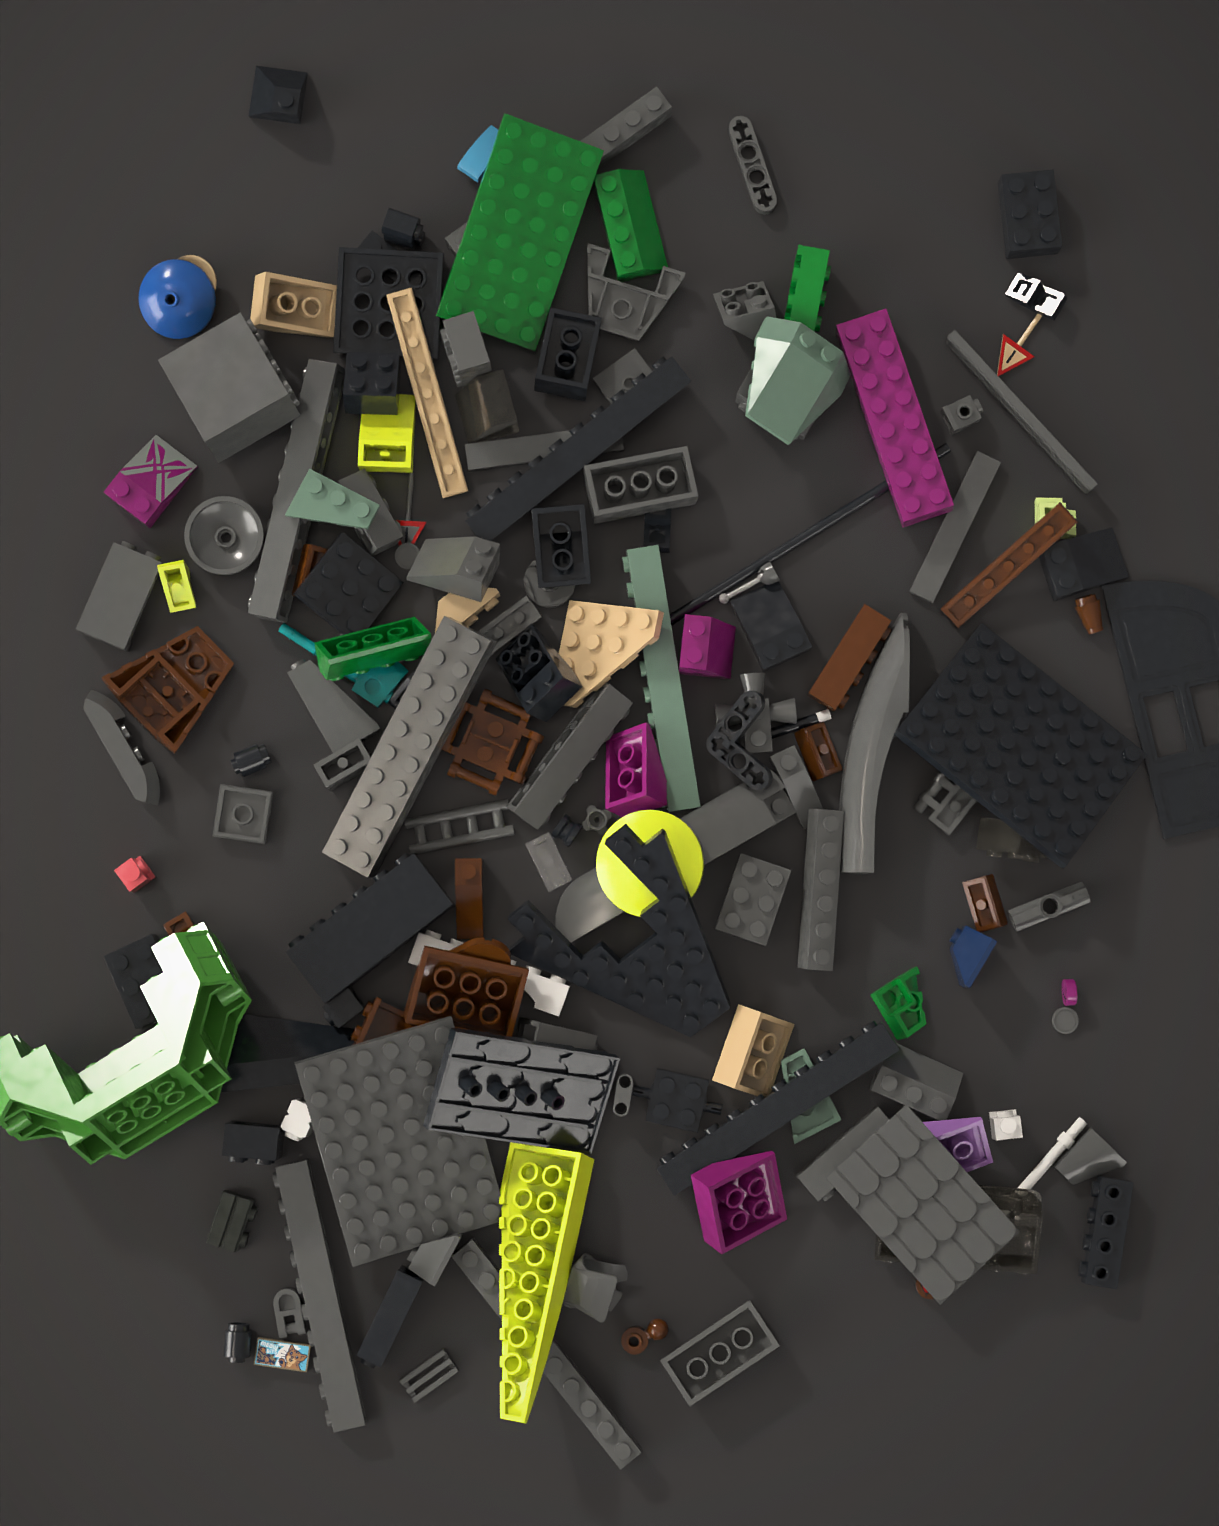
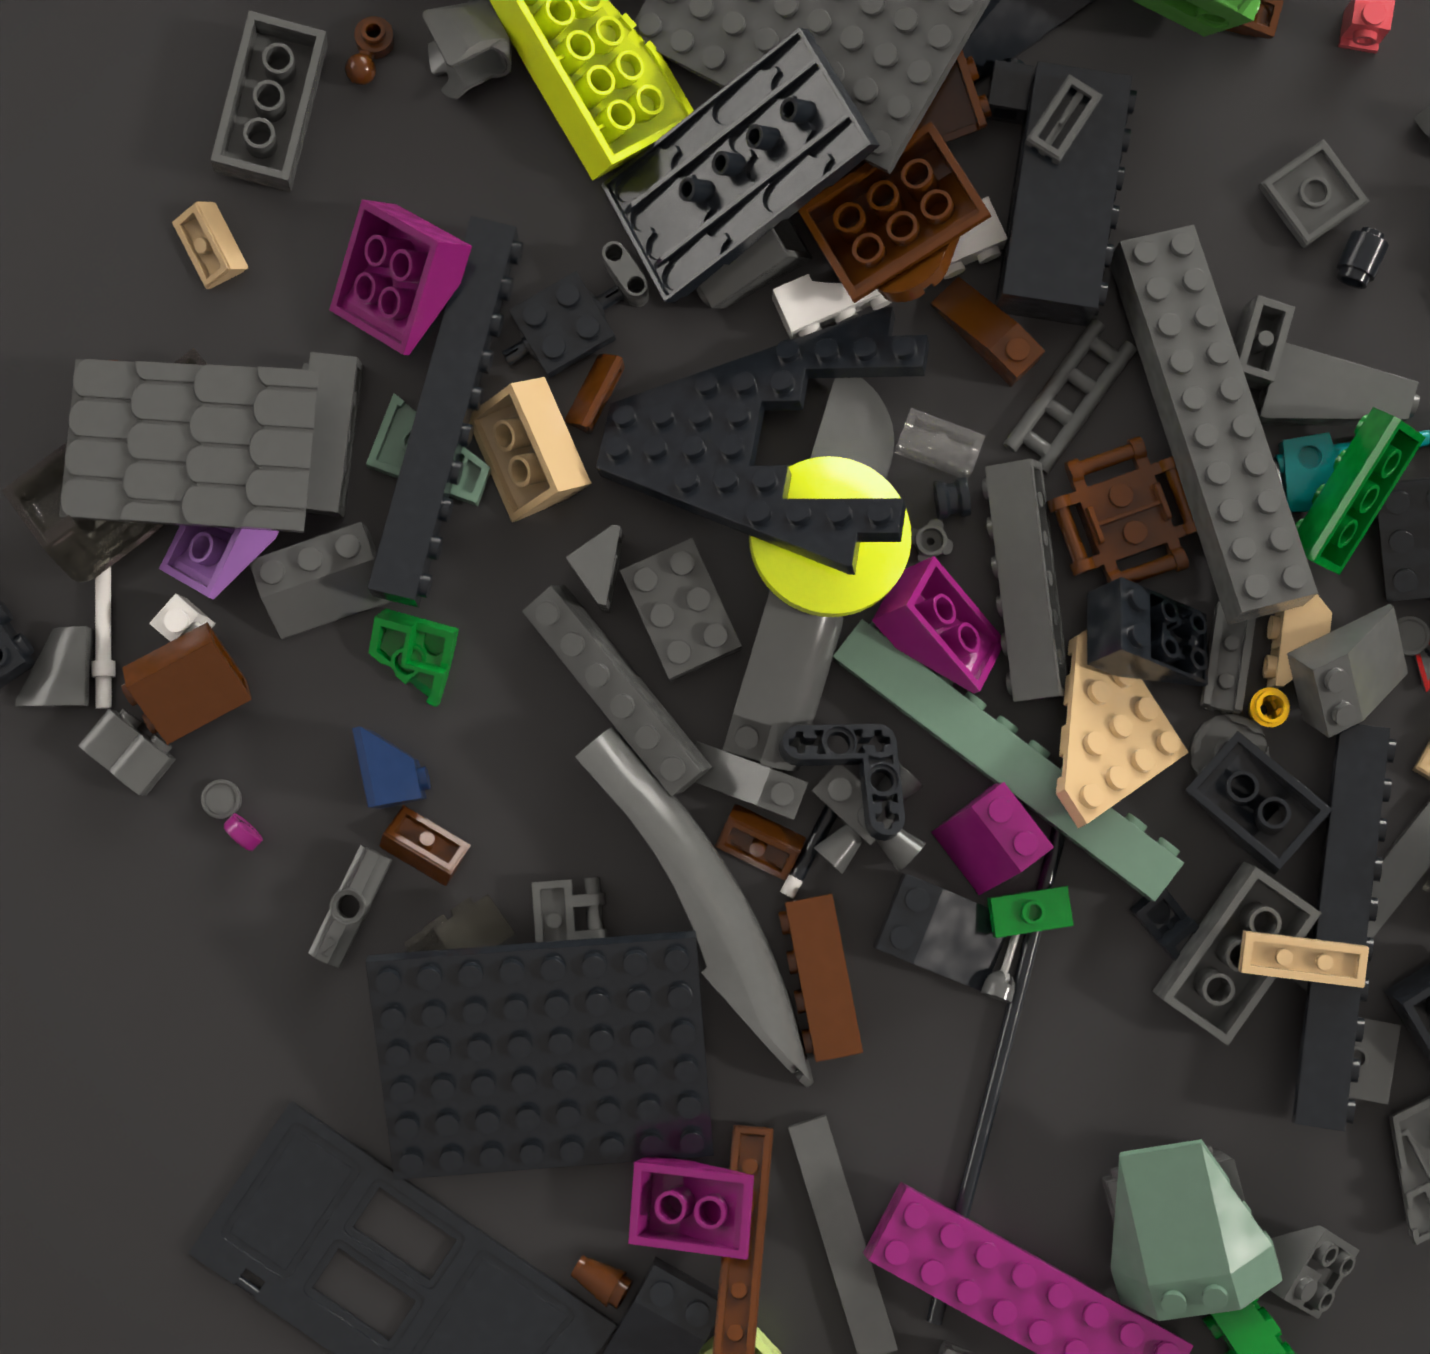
camera: 140 degrees right, 0 degrees up
(364, 955) = (1045, 147): none -> dark grey tile
(512, 578) = (1277, 707): none -> yellow cone
(614, 452) = (1303, 959): none -> tan plate
(693, 1050) = (595, 392): none -> reddish brown slope
(719, 595) = (1030, 911): none -> green plate
(775, 958) = (598, 564): none -> dark grey slope
(816, 1310) = (209, 243): none -> tan slope
(1015, 607) = (691, 1207): none -> magenta slope
(1031, 1090) = (185, 684): none -> reddish brown brick
(1090, 1086) = (128, 751): none -> dark grey brick

